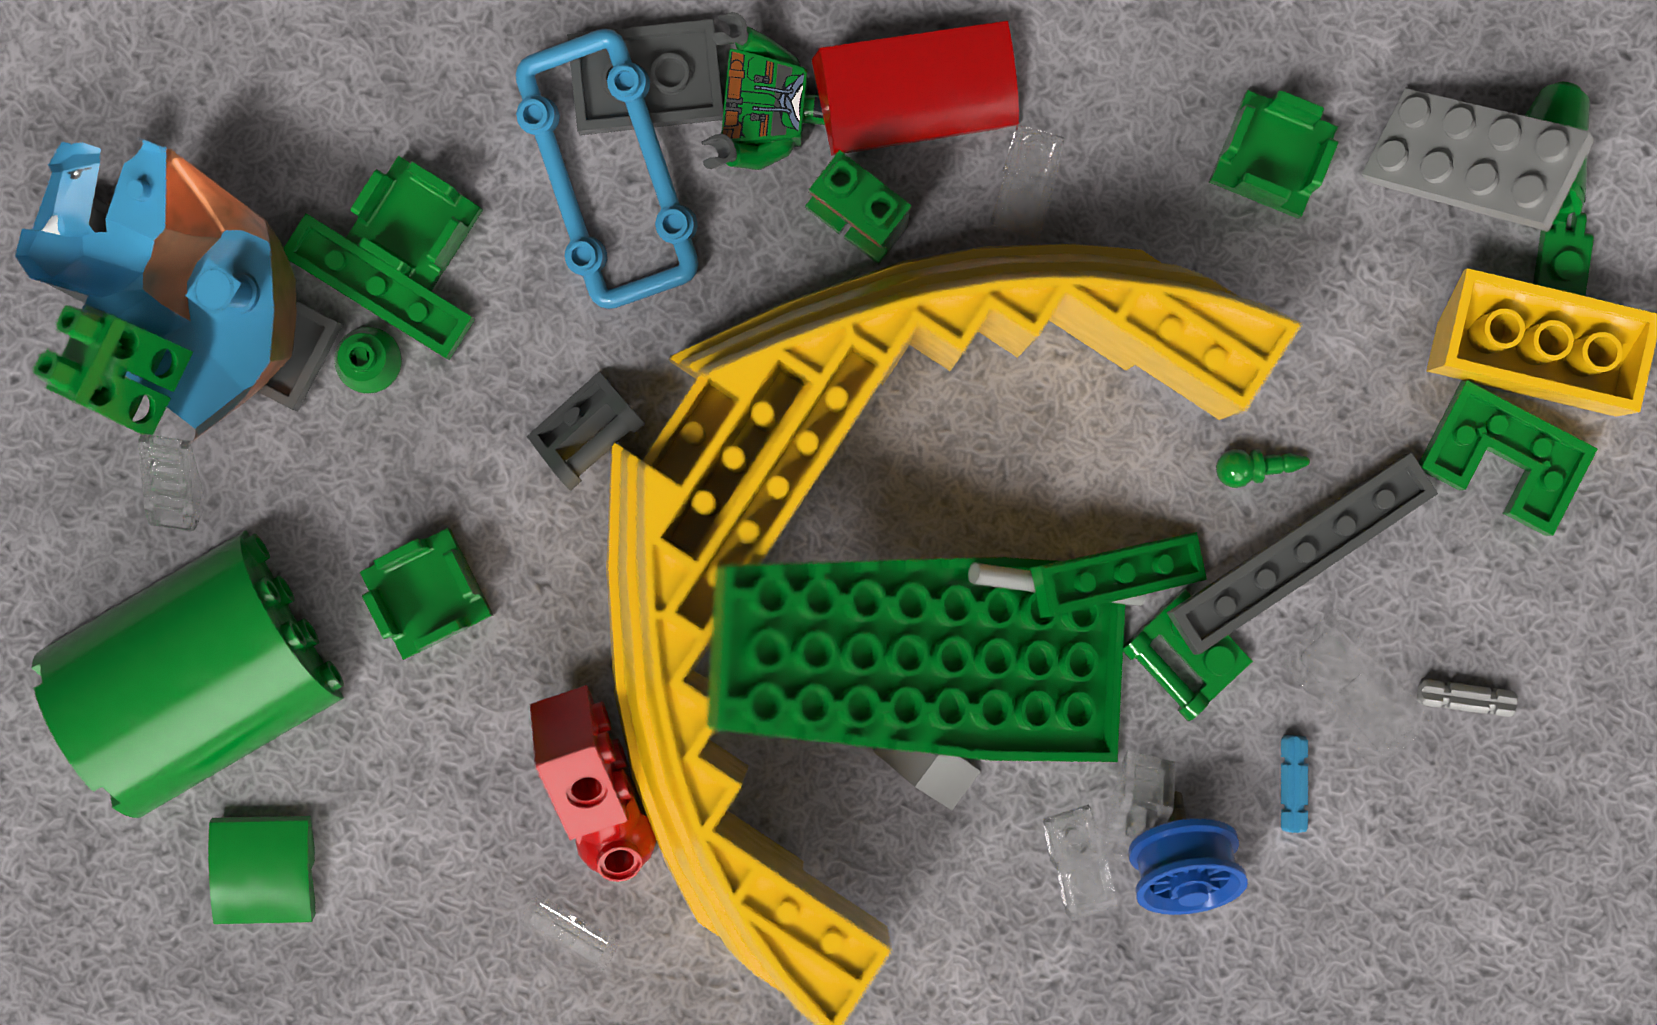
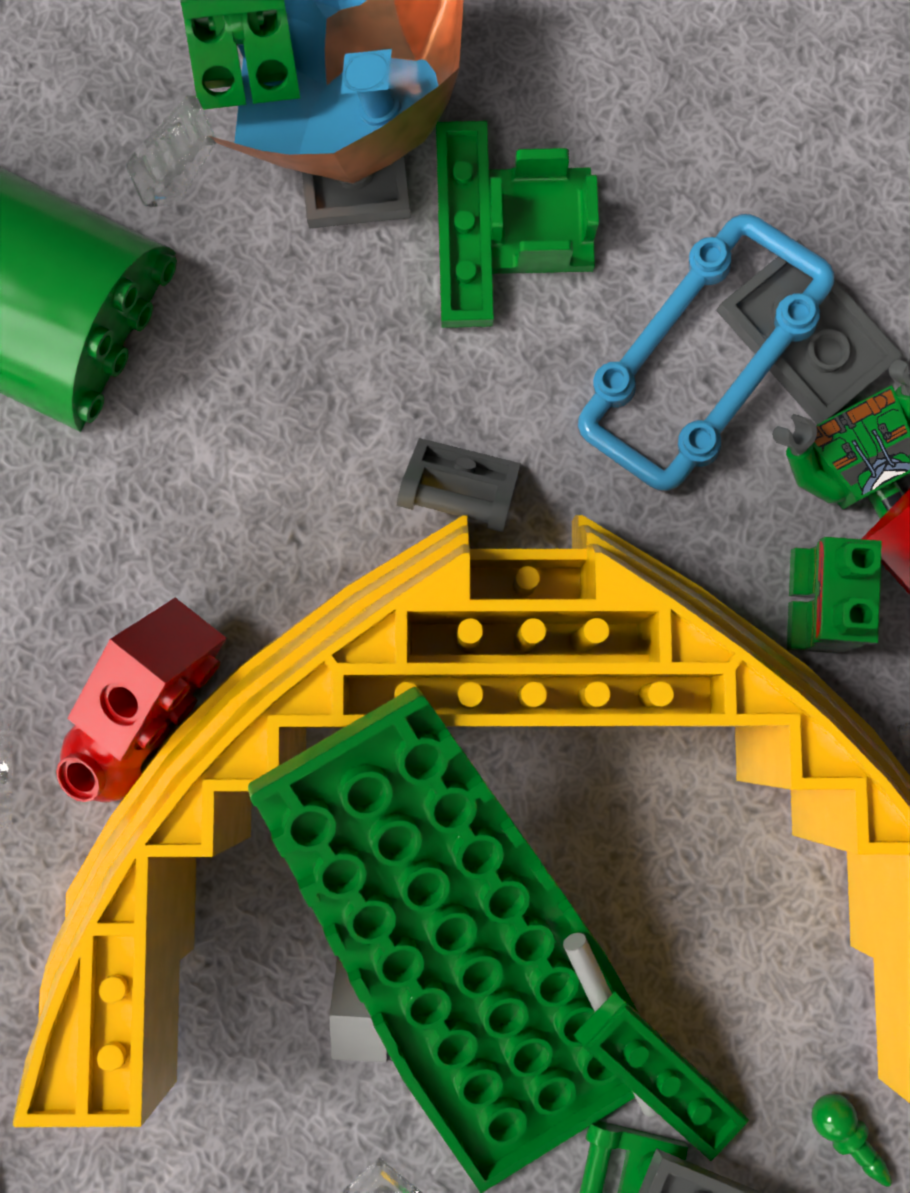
camera: 60 degrees right, 5 degrees down
(371, 372) = (394, 258): green cone -> none
(423, 593) = (217, 438): green panel -> none

